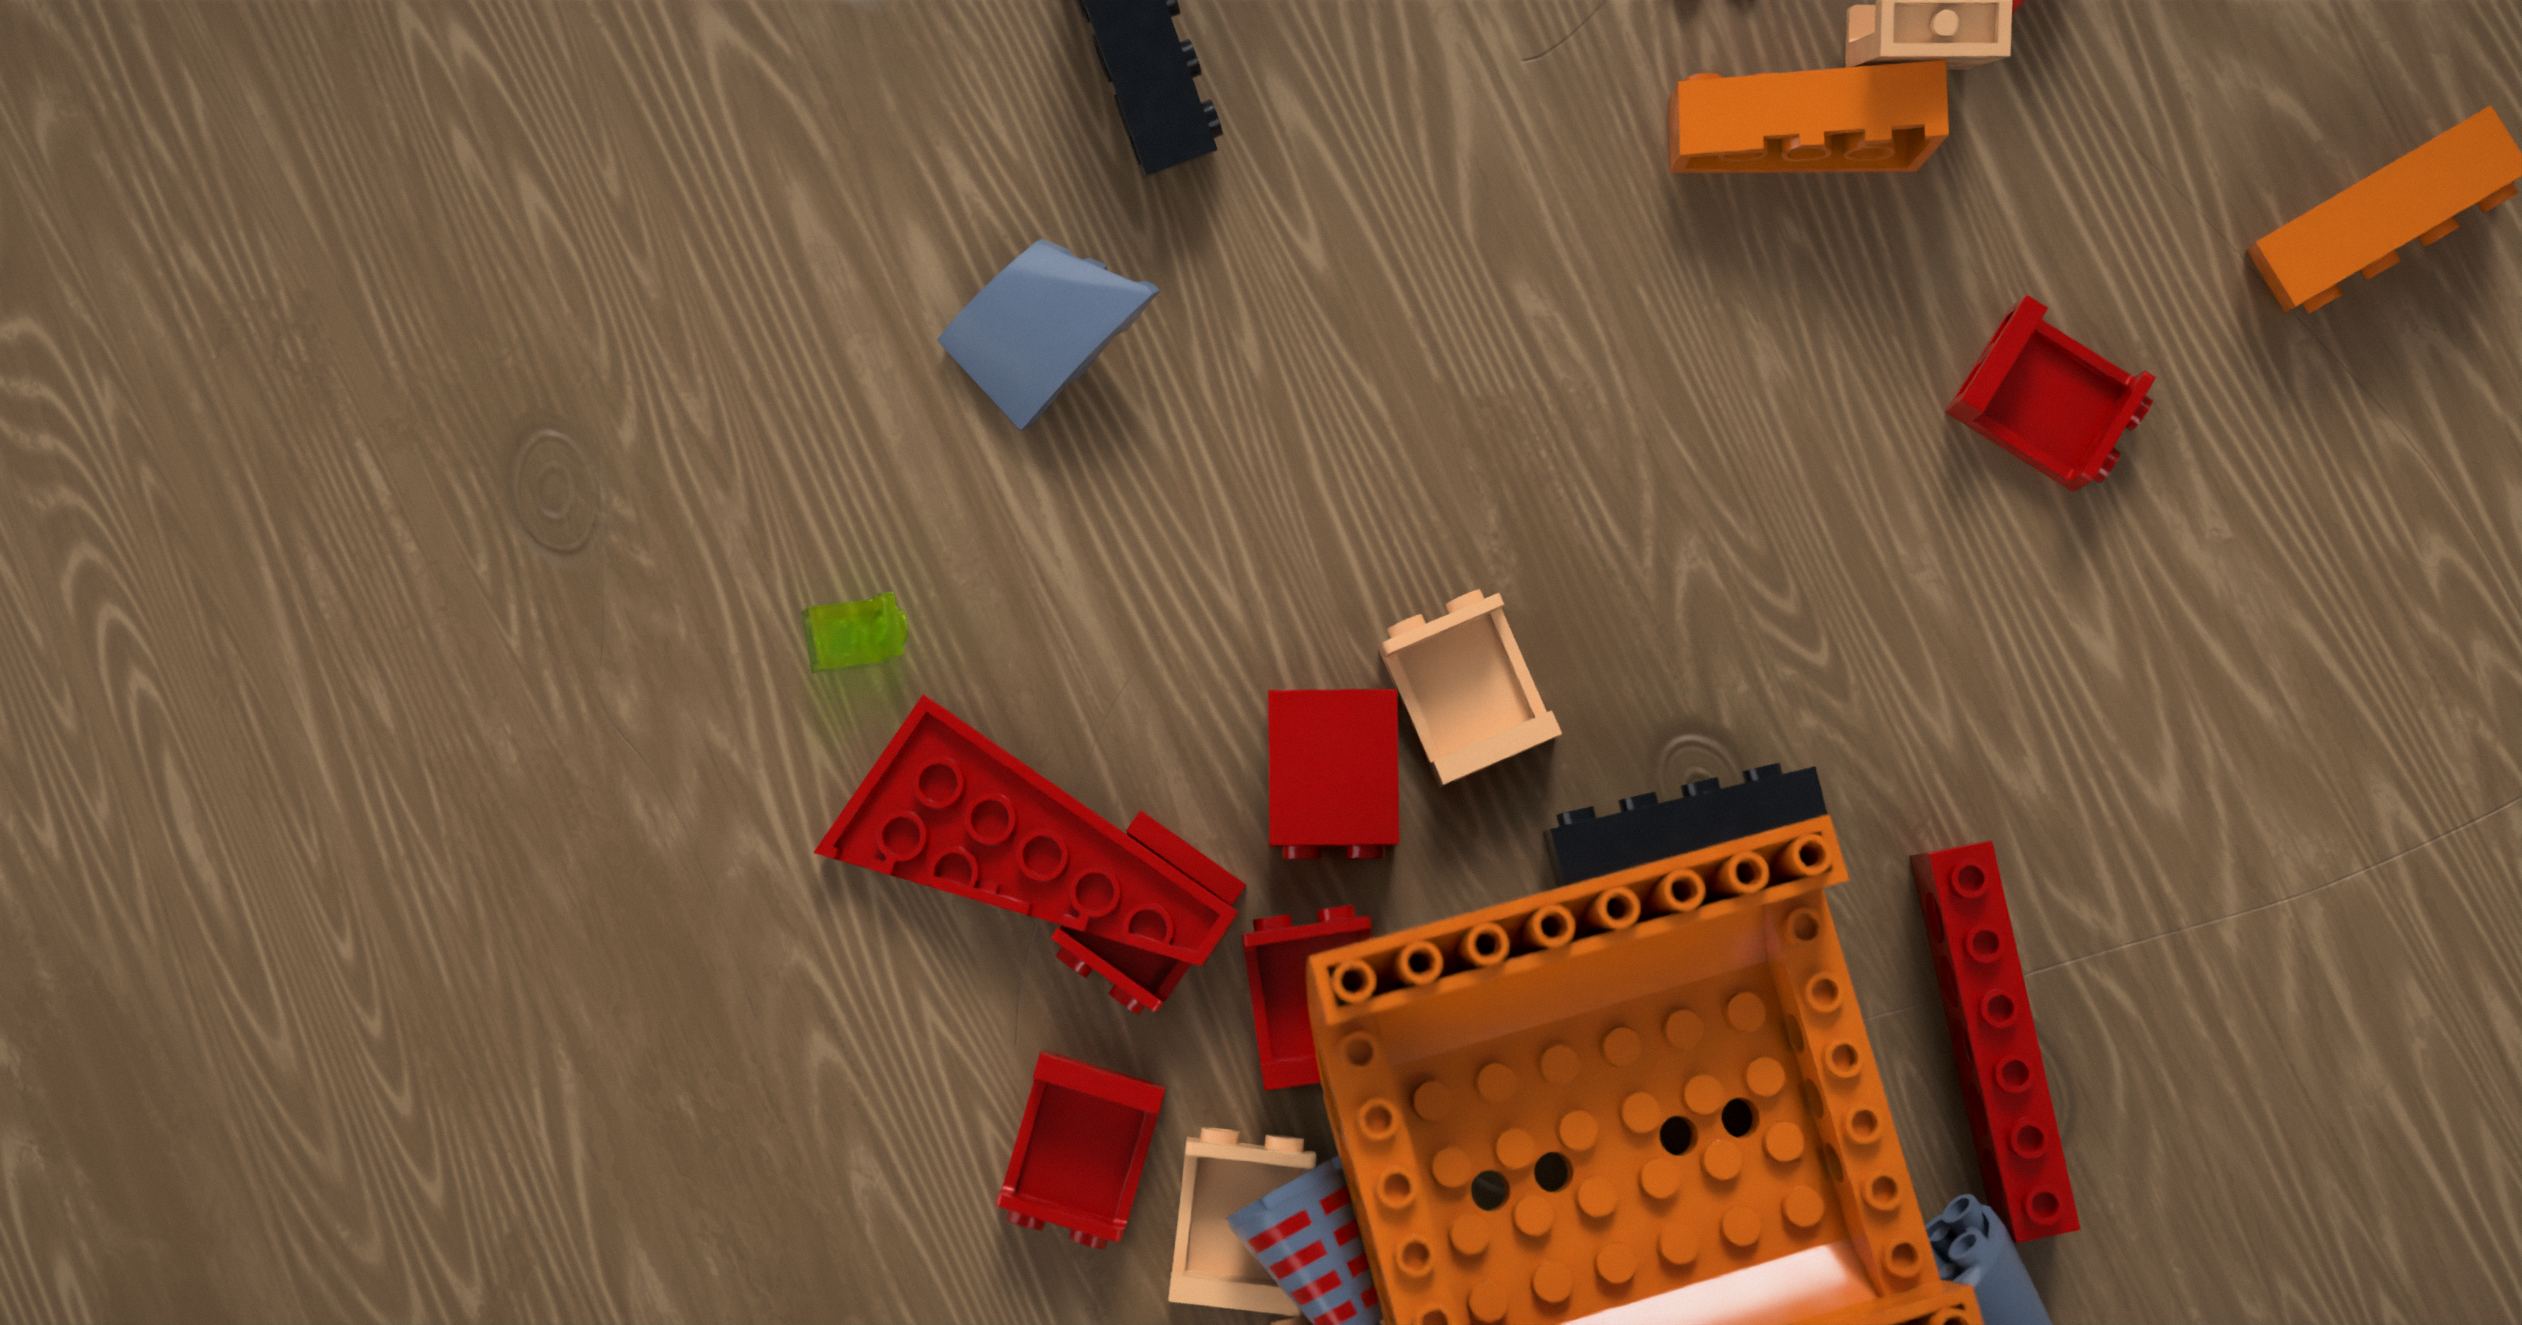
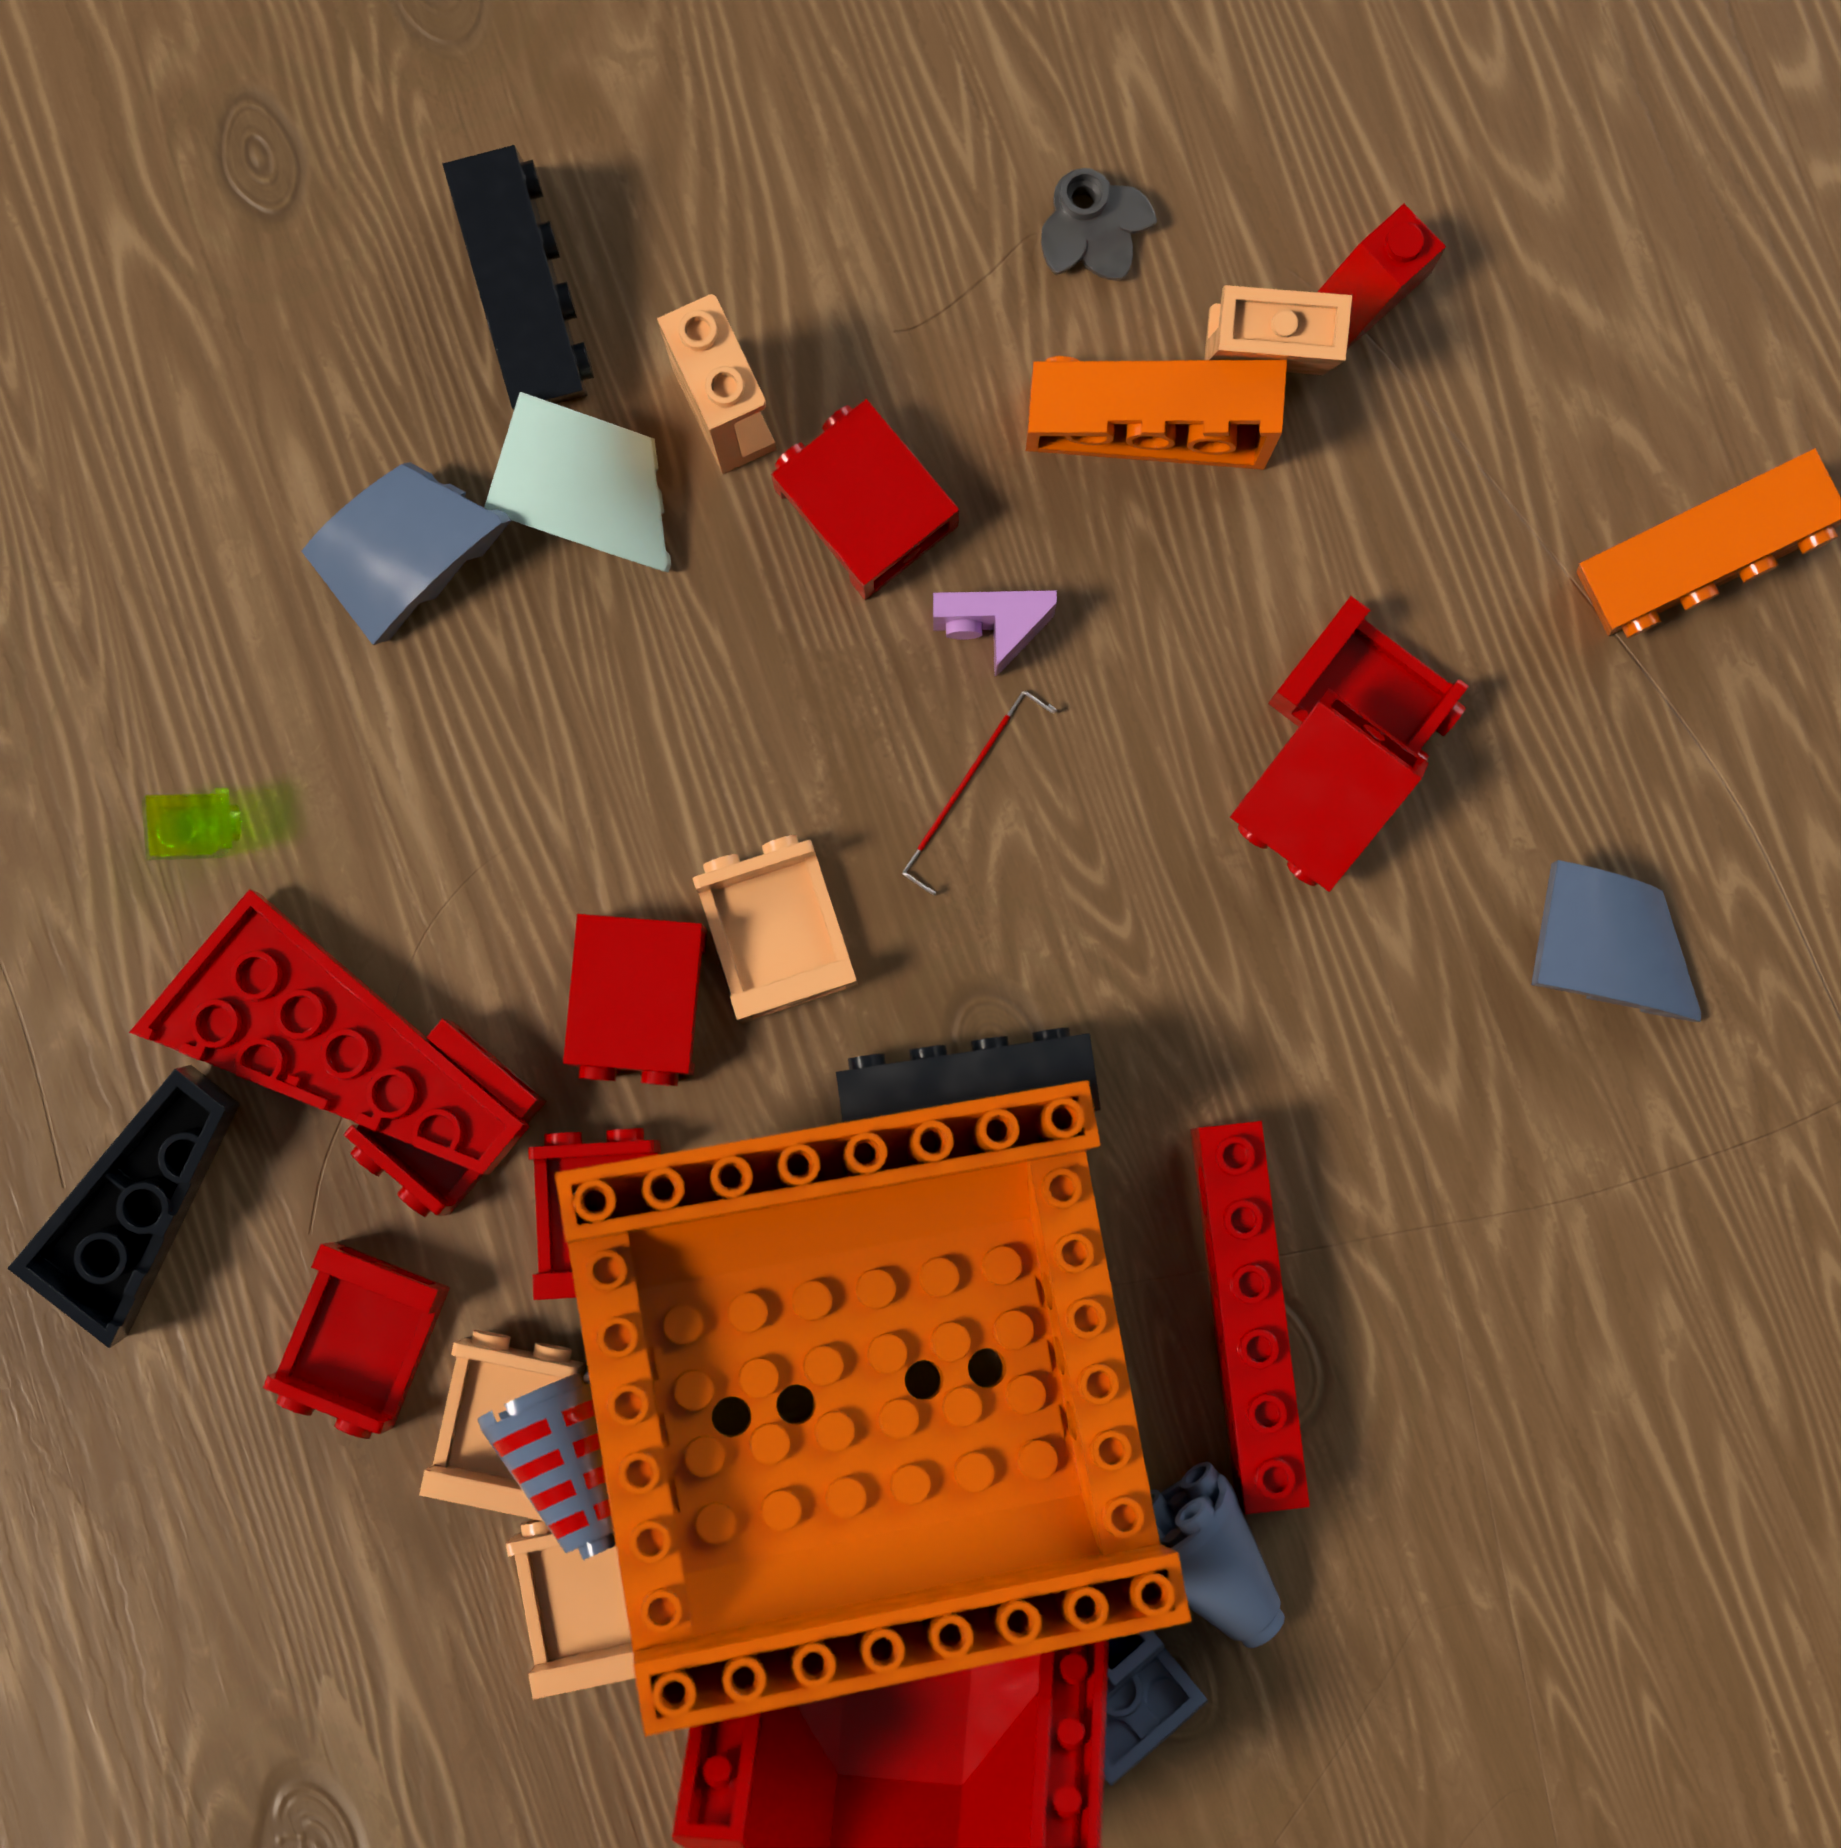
camera: 10 degrees right, 0 degrees up
(828, 1046) = (122, 1217): none -> black wedge
(1223, 244) = (581, 481): none -> light aqua slope
(1358, 130) = (717, 382): none -> light nougat panel
(1516, 233) = (865, 496): none -> red panel
(1673, 344) = (1011, 614): none -> lavender slope
(1725, 437) = (1050, 708): none -> red piece
(2025, 498) = (1328, 791): none -> red panel
(2324, 627) = (1612, 943): none -> sand blue slope

